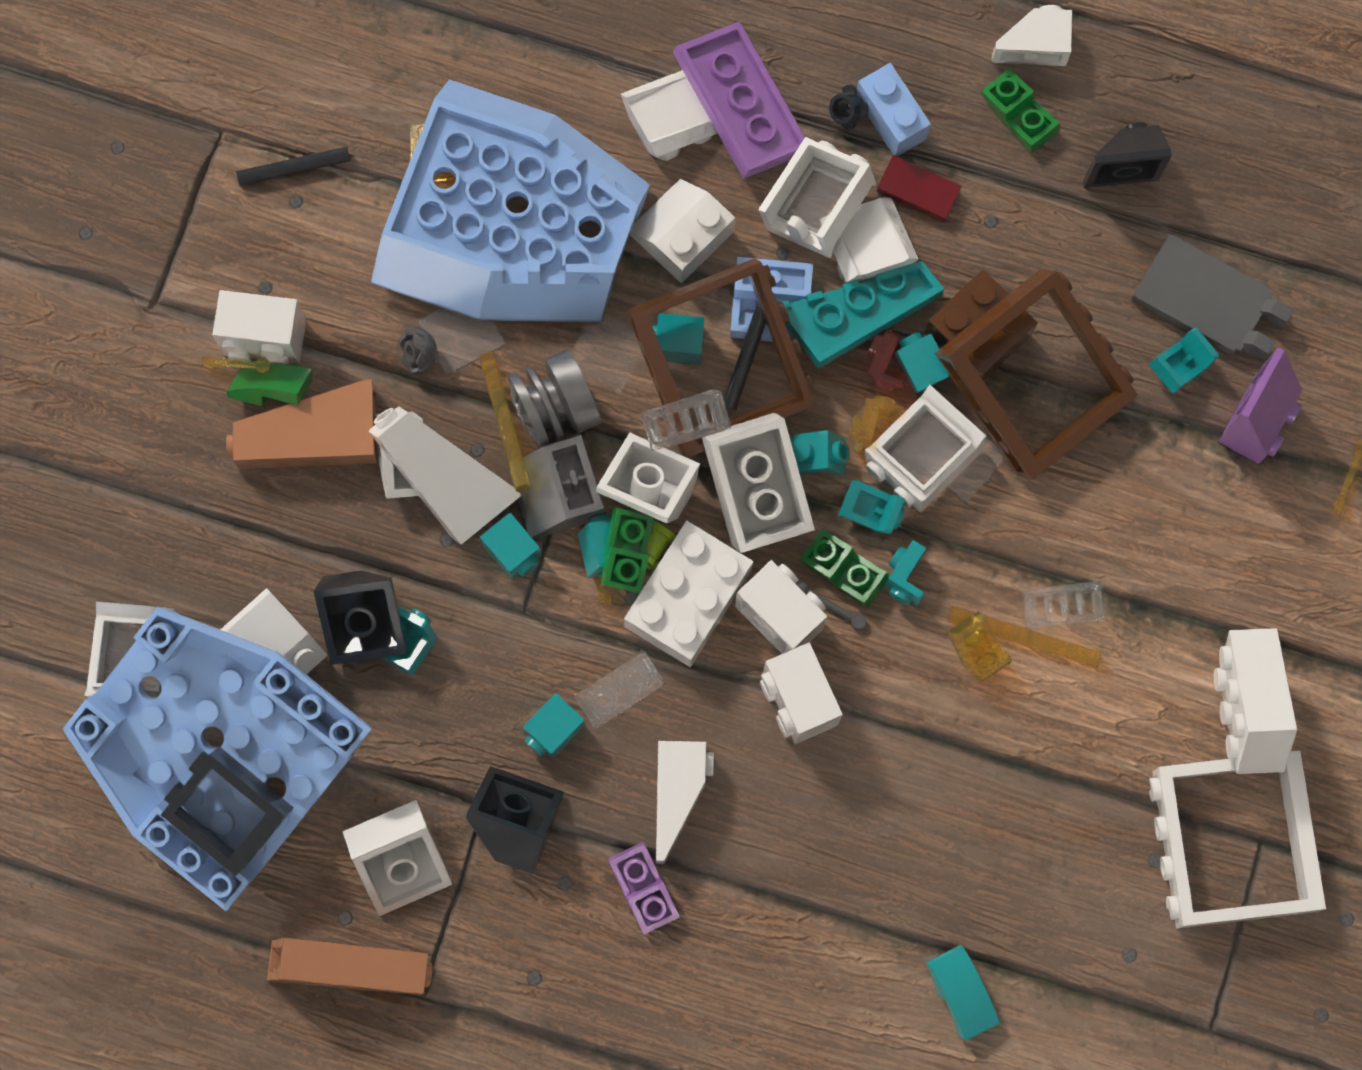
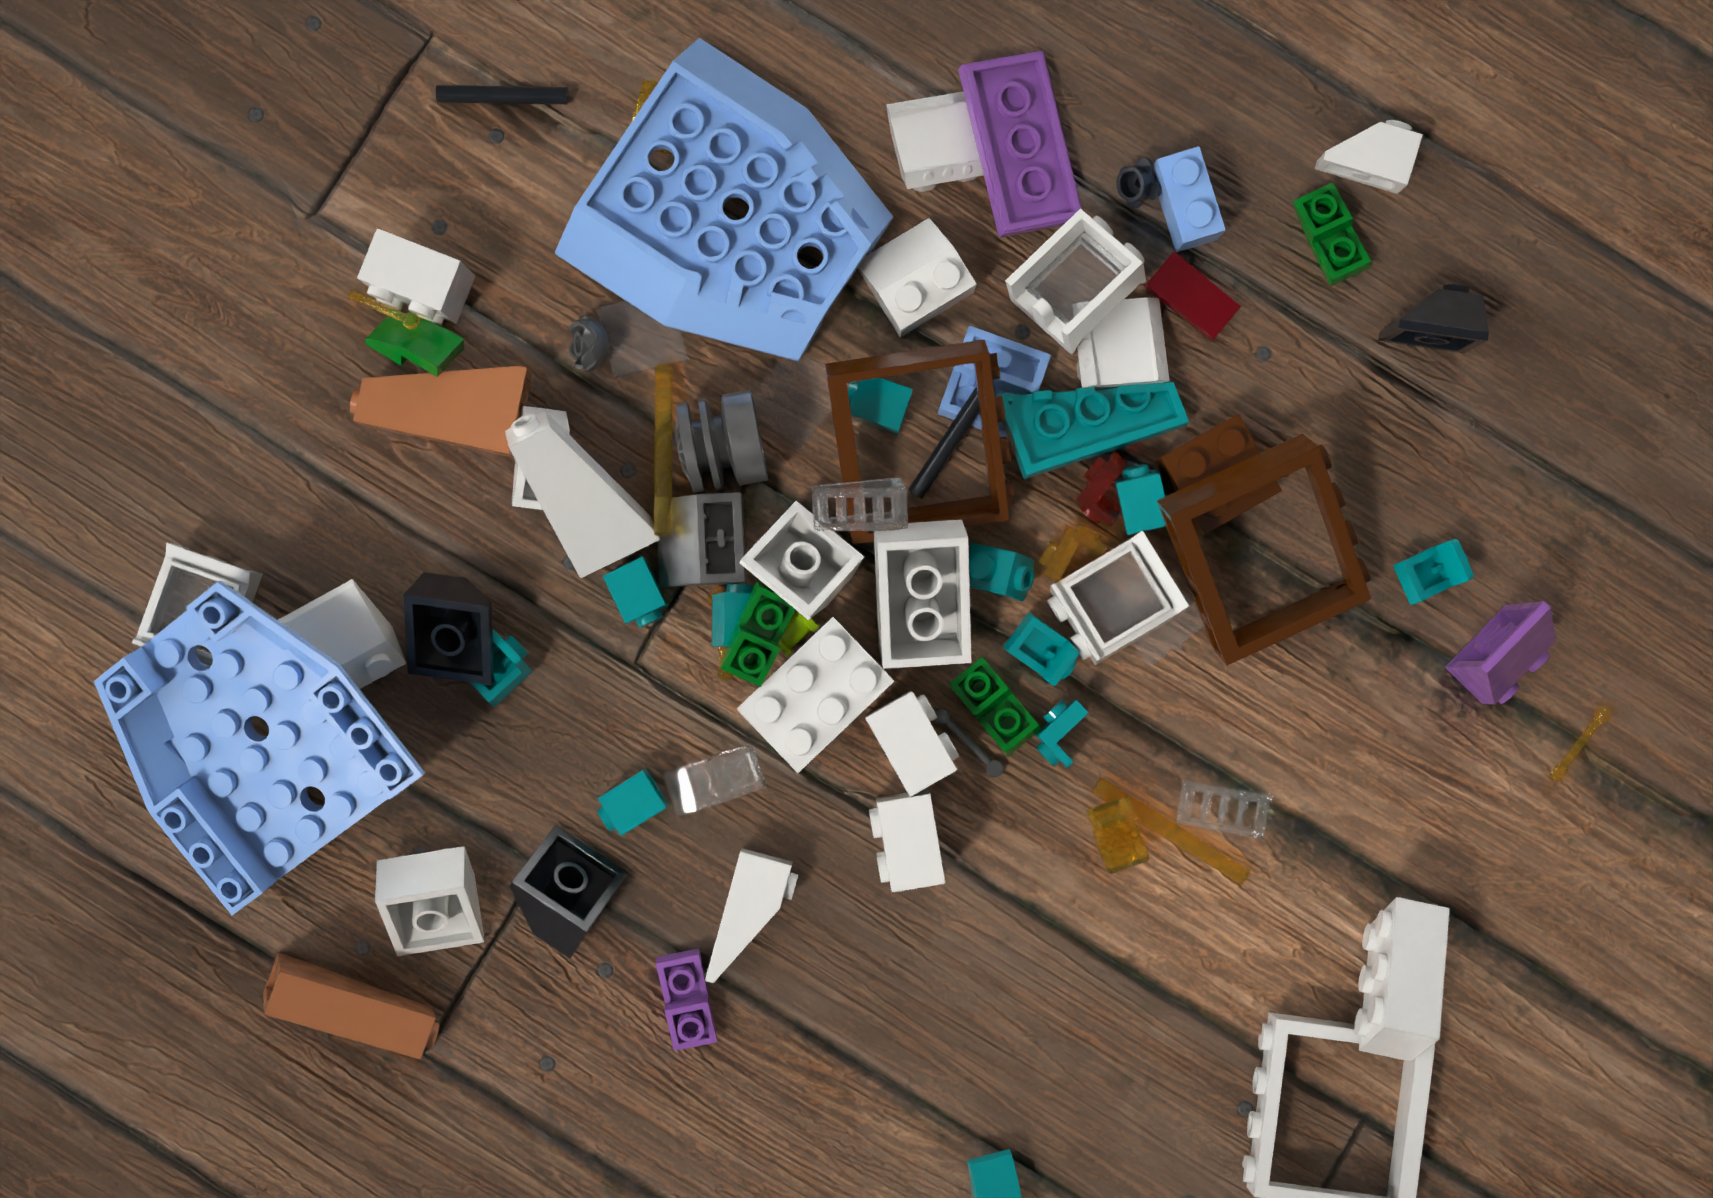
camera: 15 degrees right, 10 degrees up
(245, 782) = (276, 790): black window -> none
(1210, 296) = (1482, 505): dark grey tile -> none

